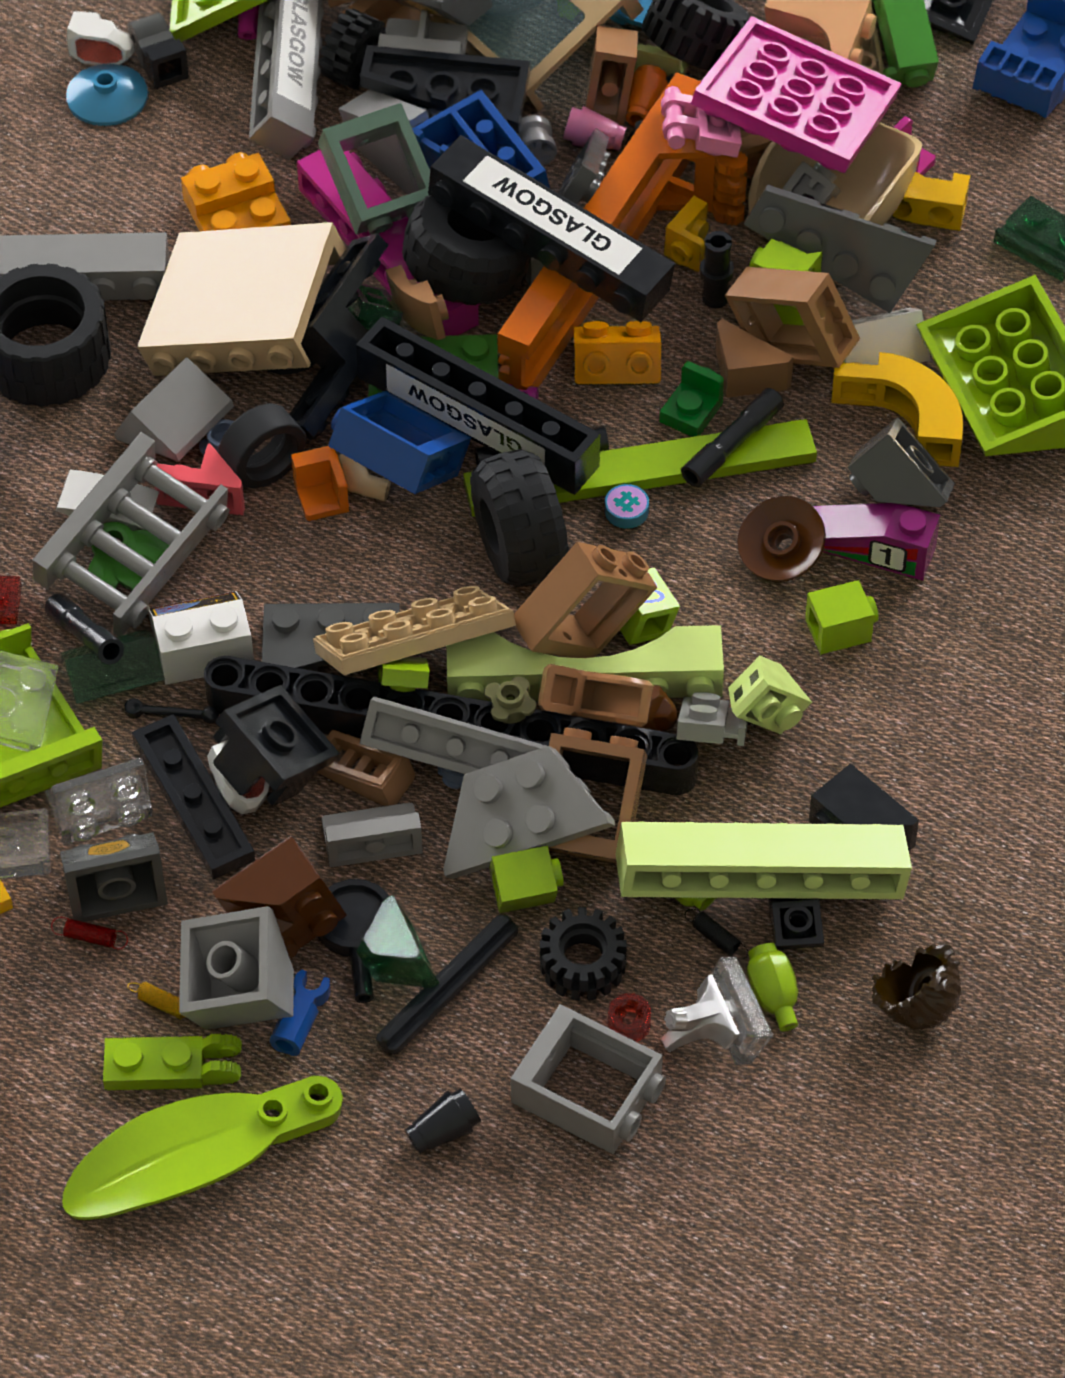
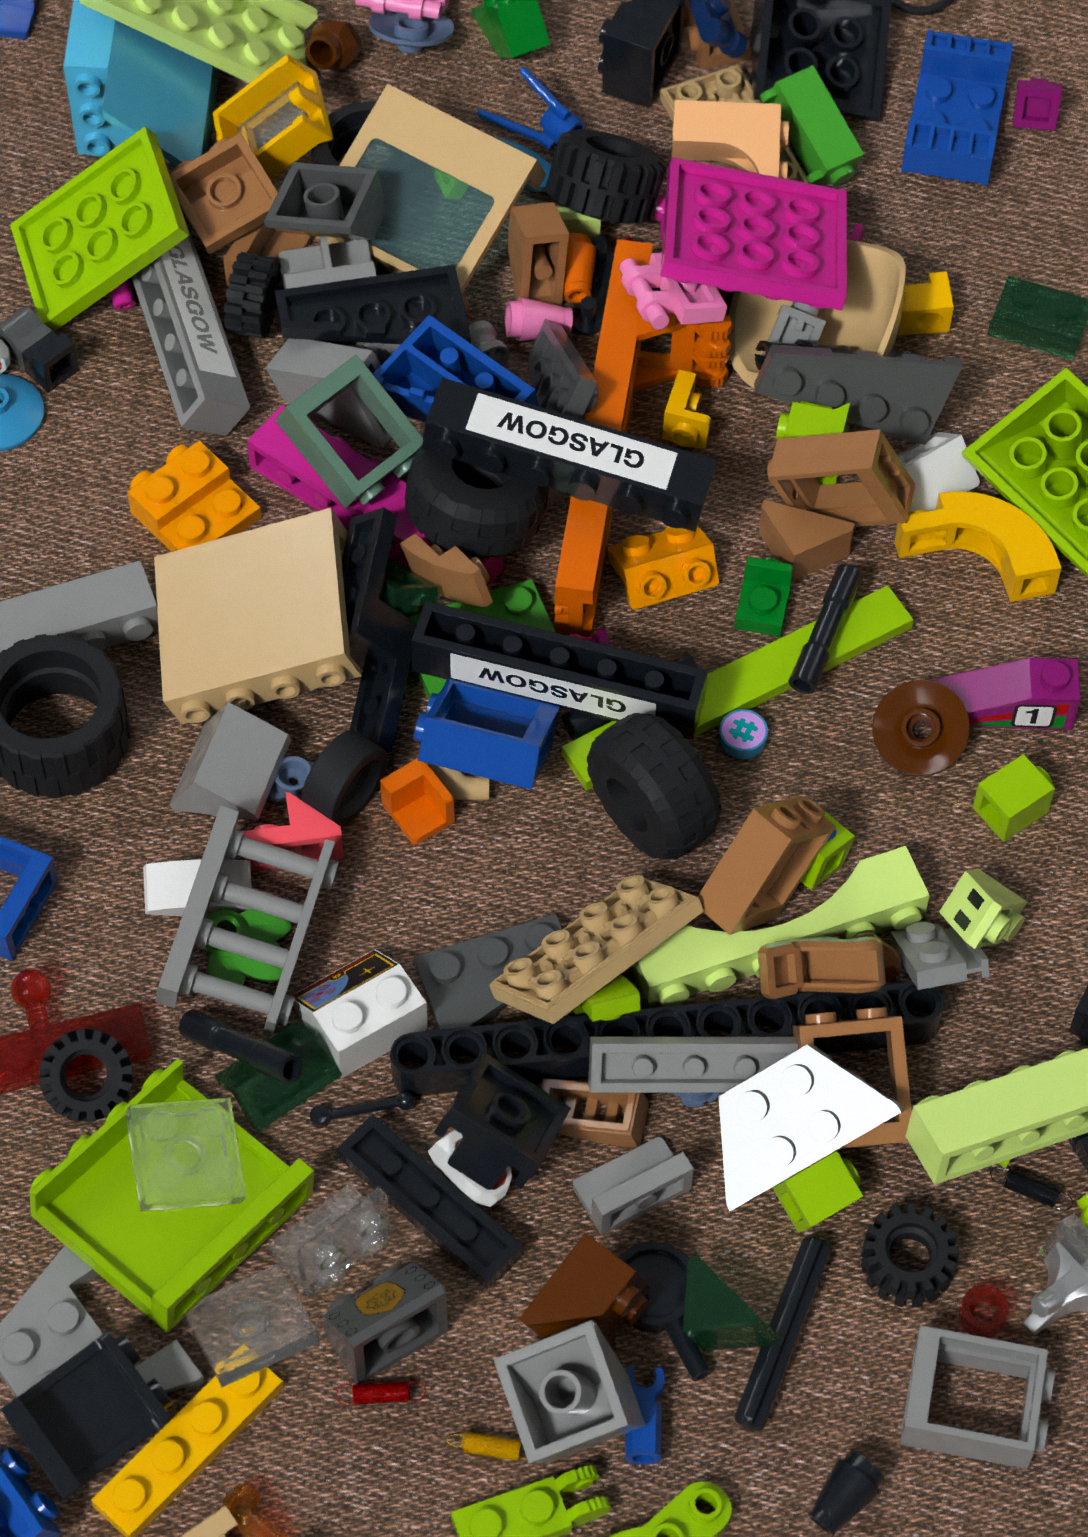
camera: 20 degrees left, 5 degrees up
(510, 710) = (730, 1010): olive plate -> none
(716, 269) = (736, 445): black pin -> none
(899, 469) = (1013, 620): dark grey slope -> none

